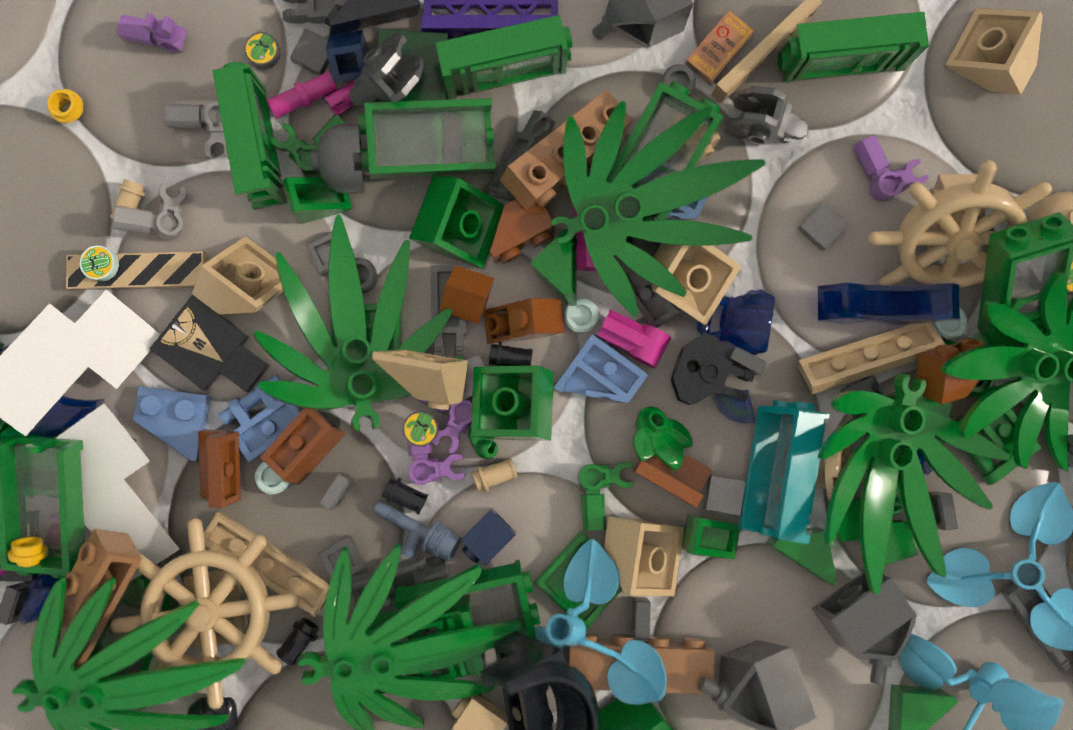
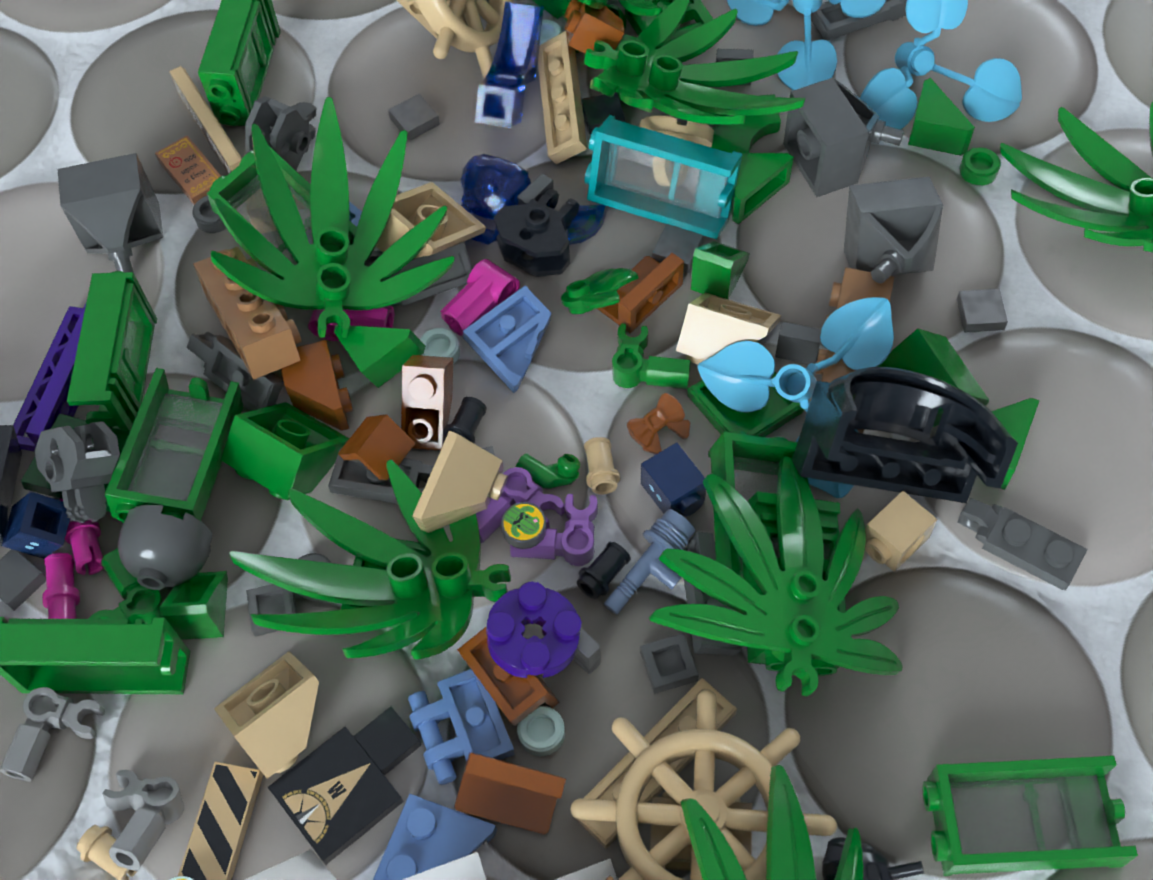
camera: 75 degrees left, 25 degrees down
(297, 641) = (758, 728): black pin -> none
(318, 439) = (533, 656): none -> dark purple plate
(512, 403) = (521, 420): green slope -> none
(553, 517) = (667, 413): none -> dark orange piece
(875, 164) = (365, 63): medium lavender bar -> none

